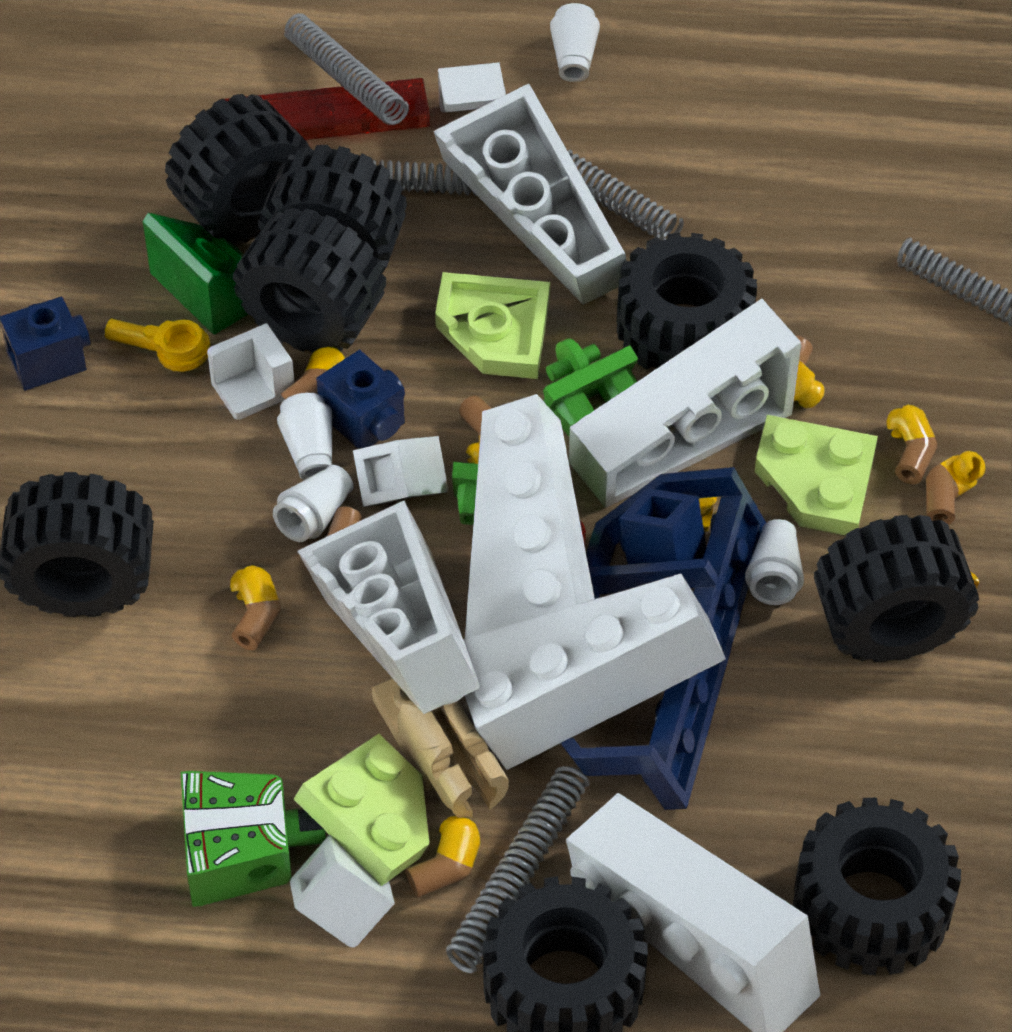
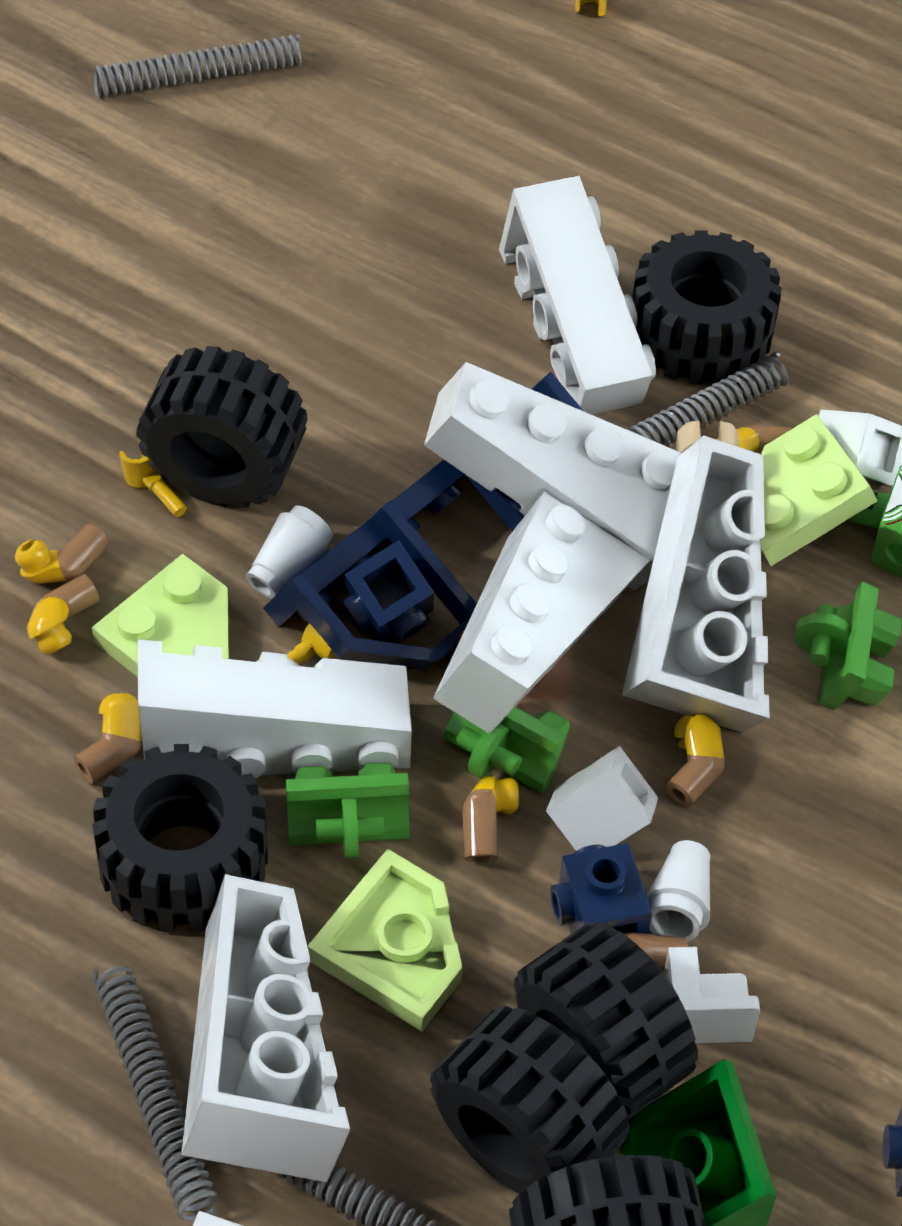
camera: 155 degrees left, 0 degrees up
(178, 343) = (778, 1086): yellow plate -> none
(262, 605) = (815, 739): arm -> none
(268, 678) = (842, 644): none -> bright green hips
(311, 504) = (714, 810): white cone -> none
(885, 843) = (413, 259): black tyre -> none

